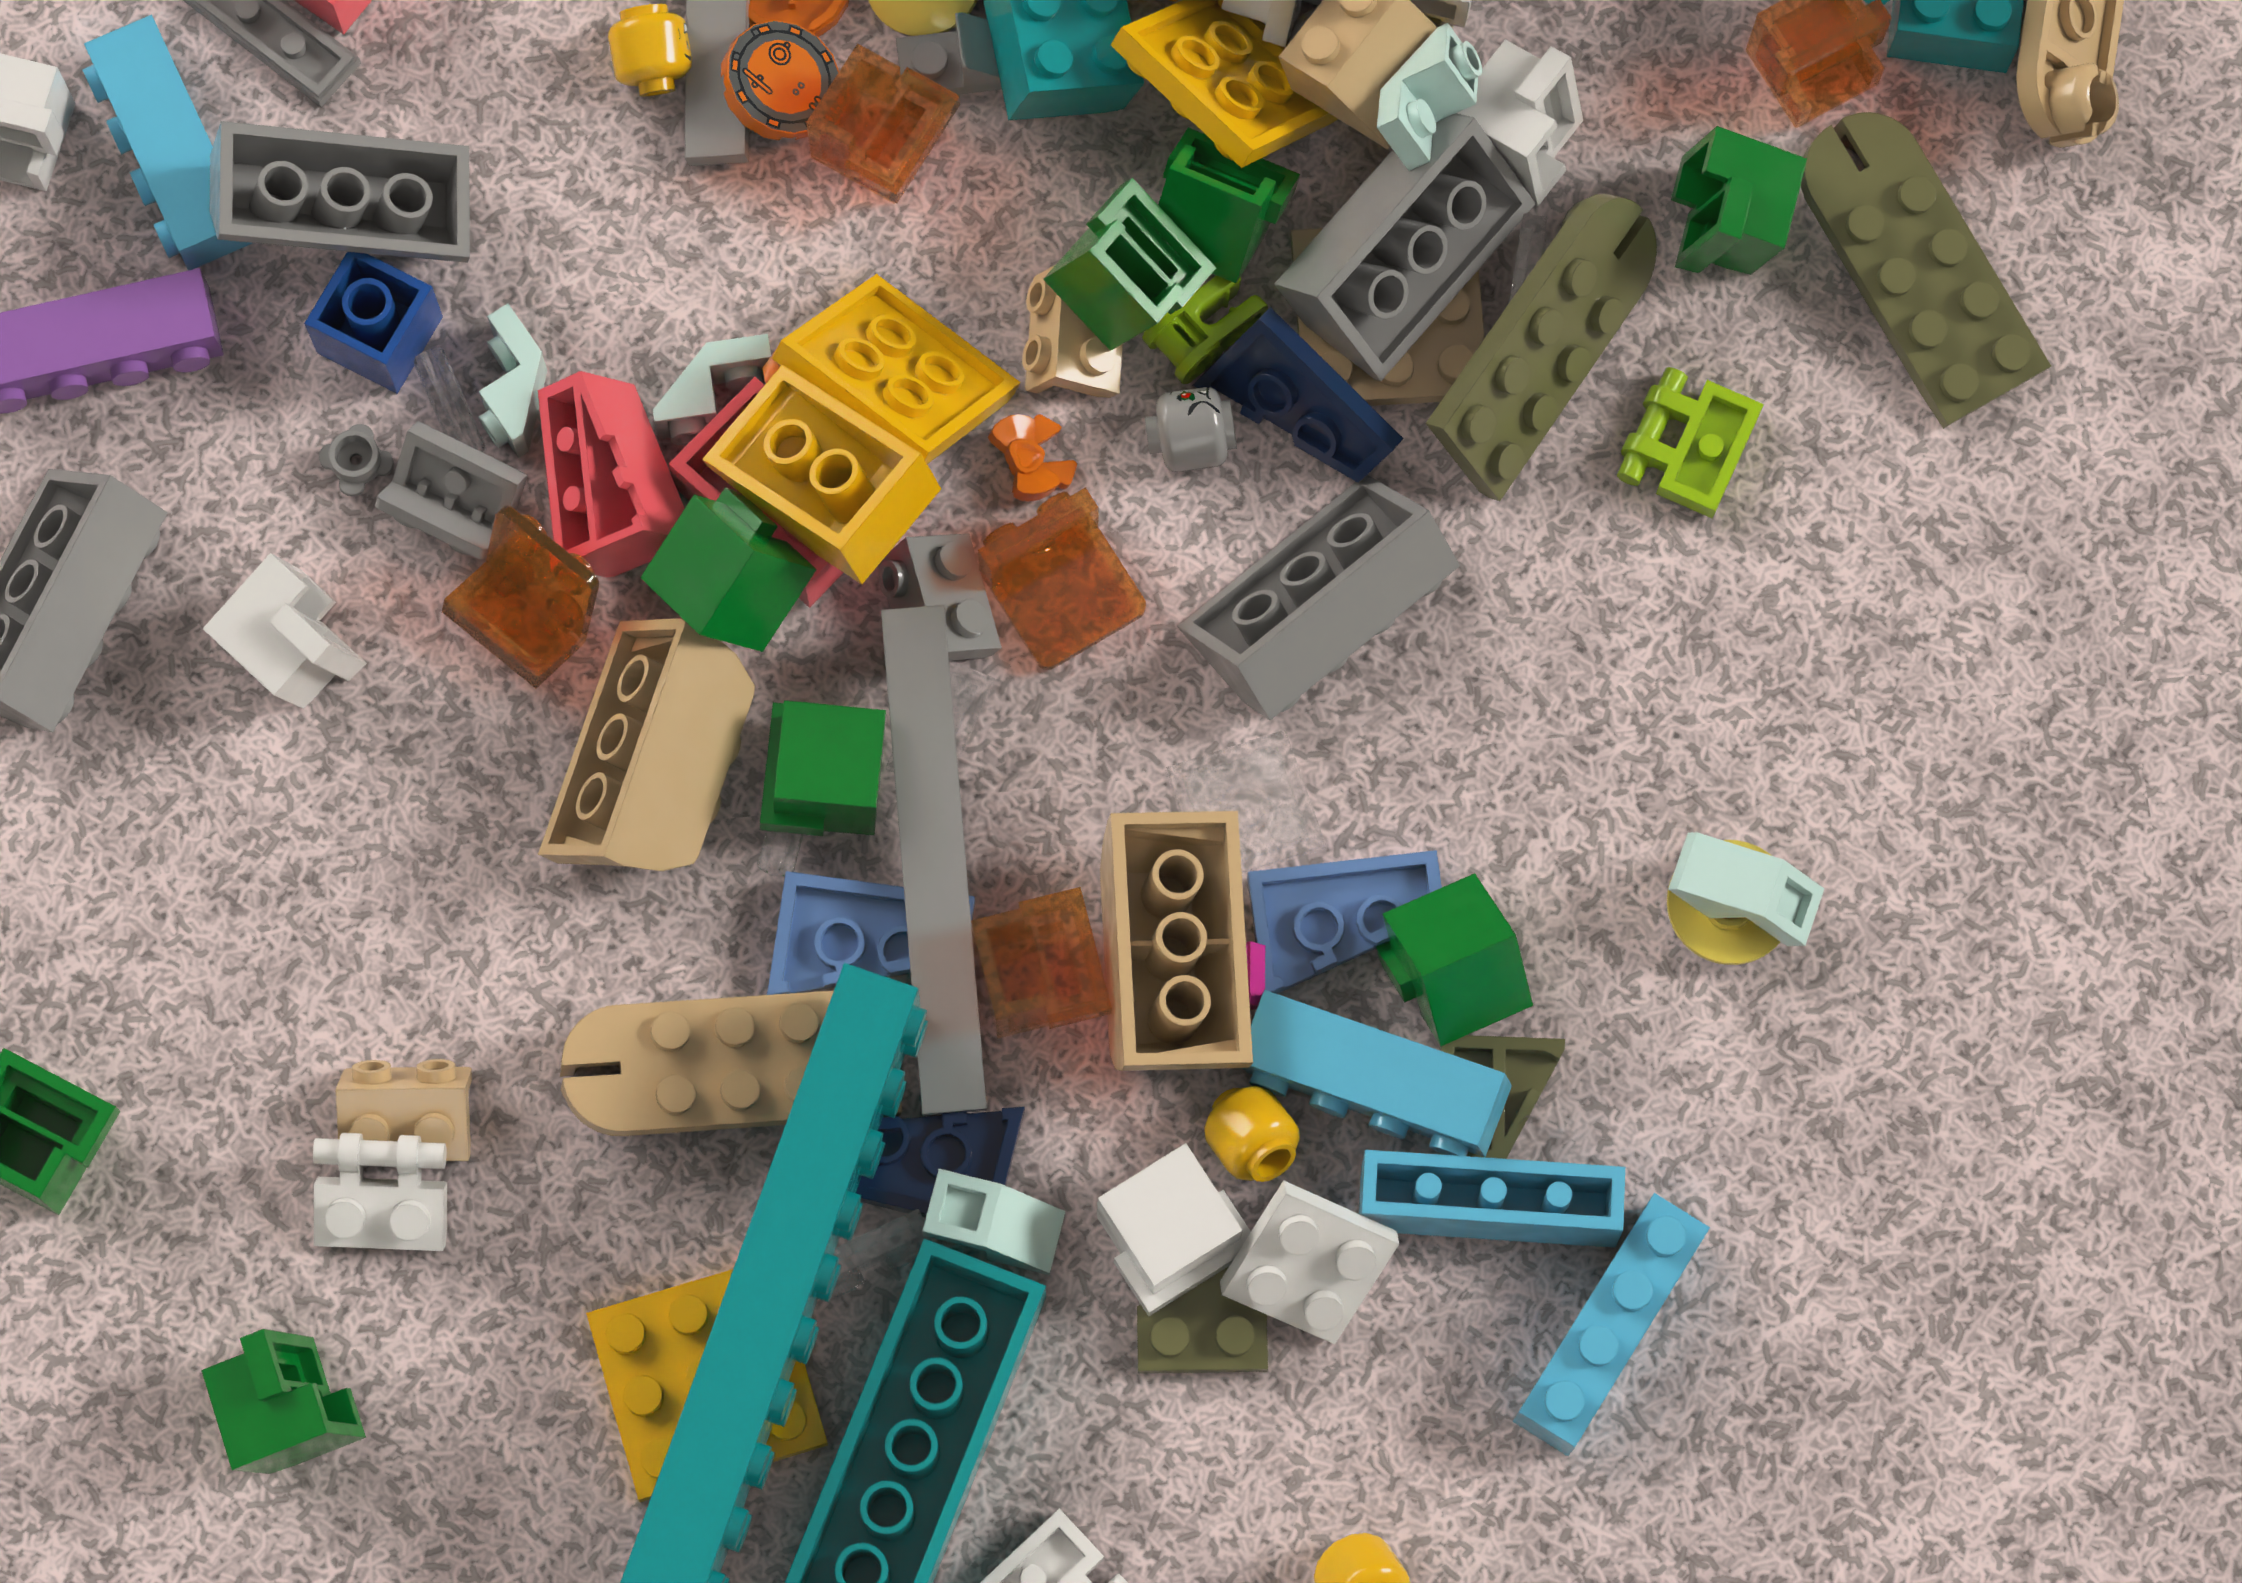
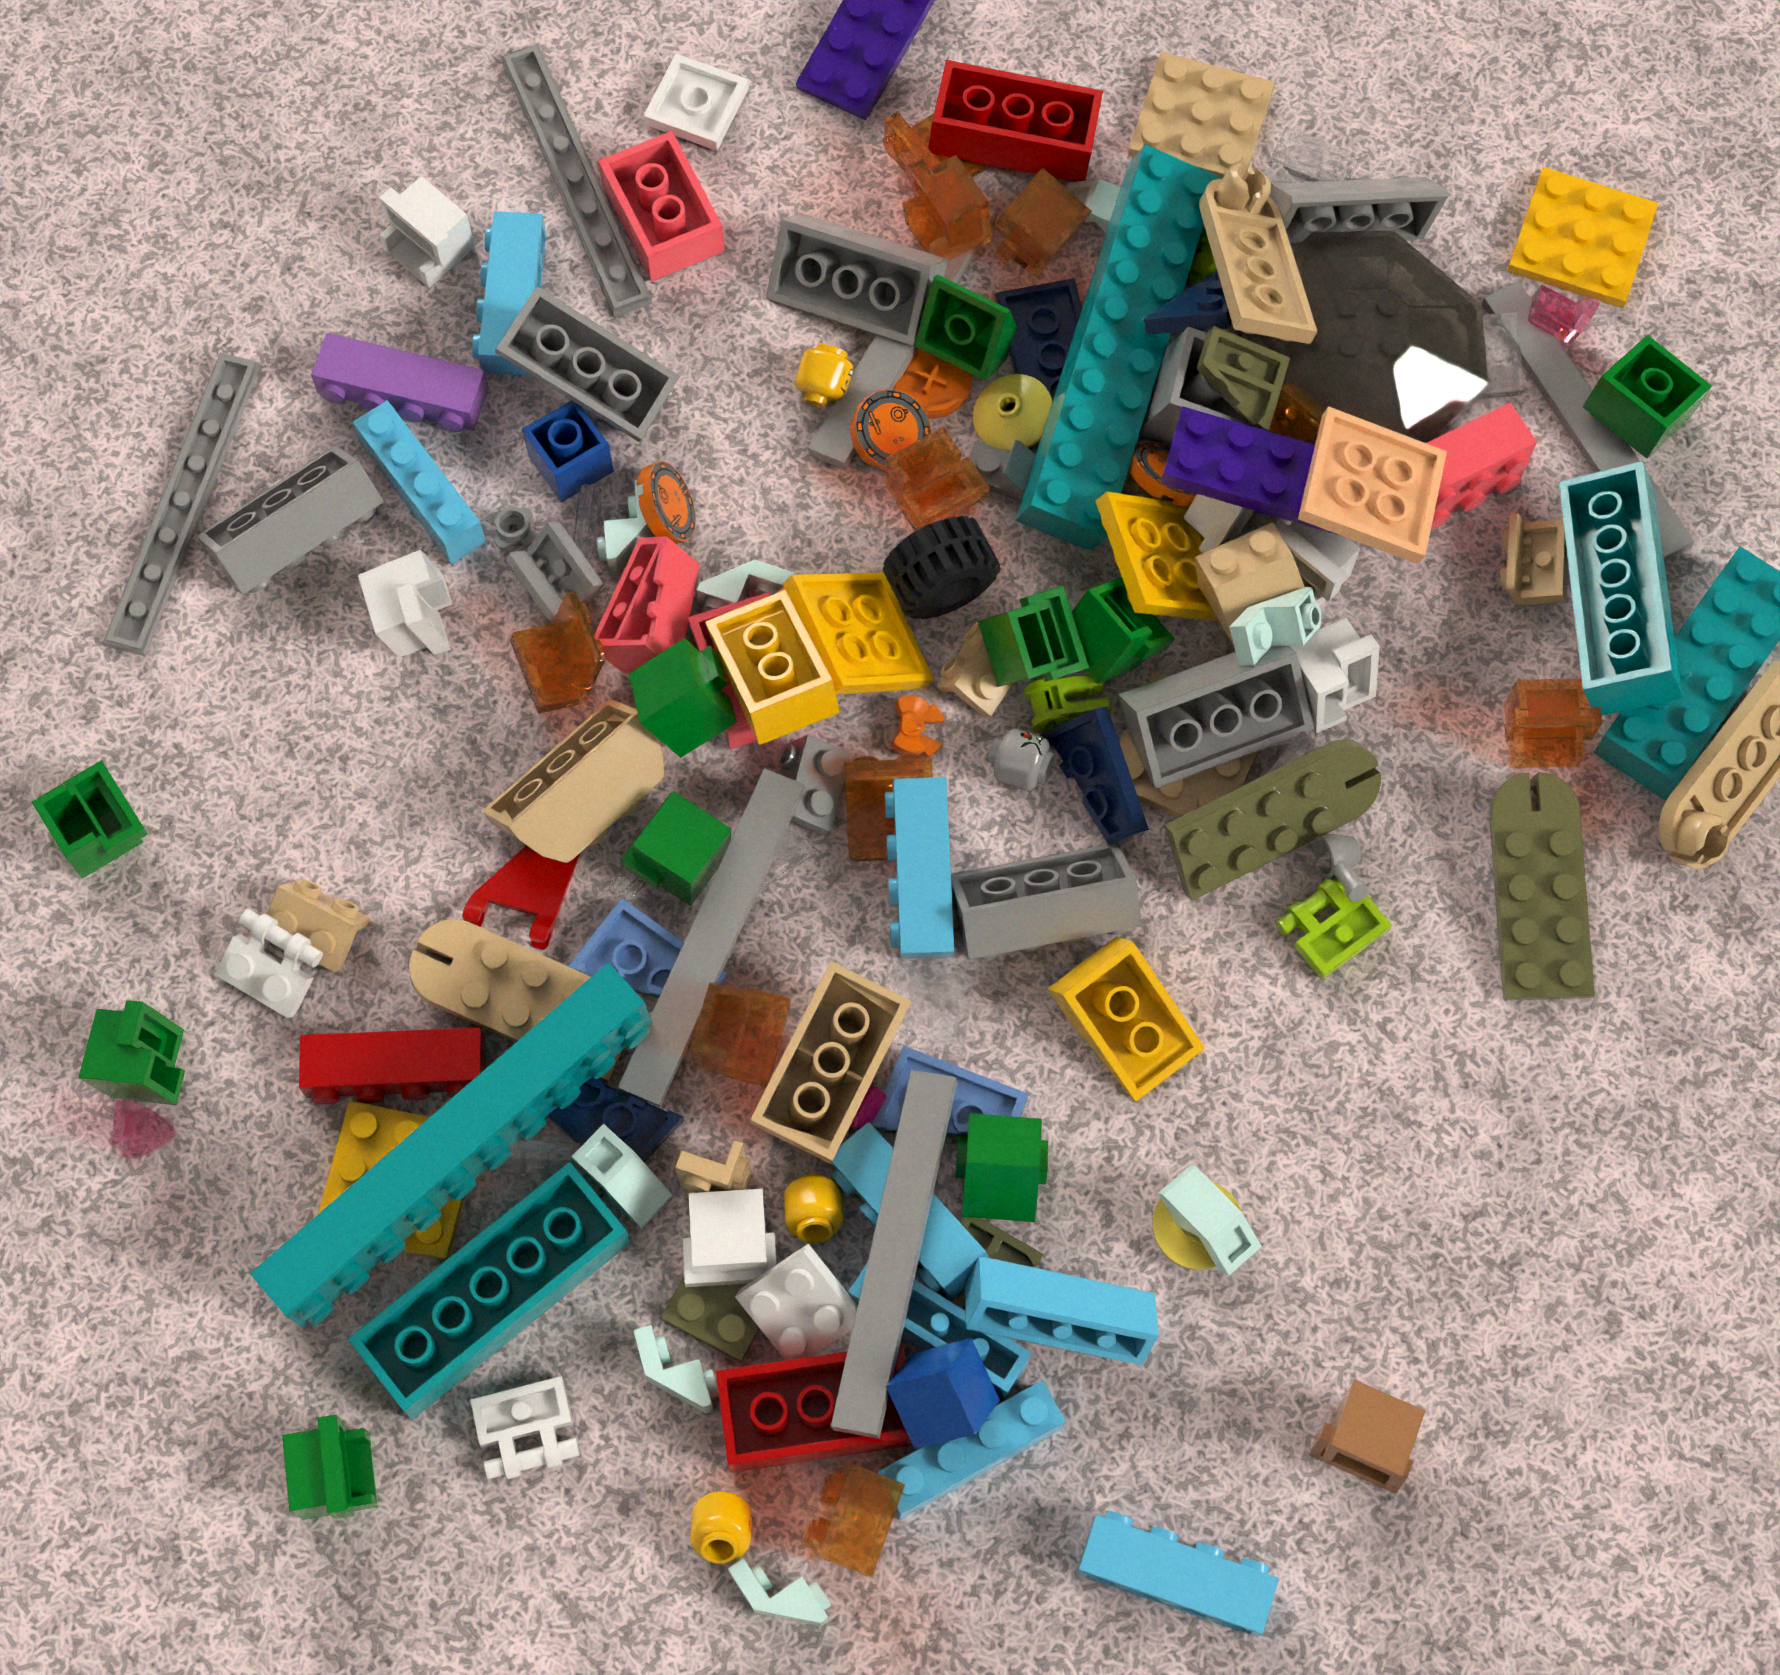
camera: 30 degrees right, 5 degrees down
(198, 461) = (419, 482): none -> medium azure brick
(340, 1493) = (139, 1129): none -> clear pink tile
(547, 325) = (666, 502): none -> orange tile
(616, 1236) = (389, 1063): none -> red brick
(653, 918) = (528, 886): none -> red flag
(956, 231) = (941, 567): none -> black tyre
(1102, 1166) = (704, 1175): none -> tan bracket
(1147, 635) = (922, 868): none -> medium azure brick
(1218, 1432) = (682, 1381): none -> light aqua slope
(1394, 1135) = (894, 1255): none -> light grey tile
(1396, 1375) = (786, 1412): none -> red brick
(1500, 689) = (1126, 1016): none -> yellow slope
(1520, 1485) = (854, 1519): none -> clear orange bracket
(1549, 1273) = (943, 1393): none -> blue head
(1629, 1097) = (1060, 1310): none -> medium azure brick
(1656, 344) = (1344, 855): none -> light grey bar
(1739, 200) = (1445, 790): green plate -> none
(1936, 1338) = (1177, 1574): none -> medium azure brick
(2076, 1049) = (1370, 1437): none -> medium nougat plate

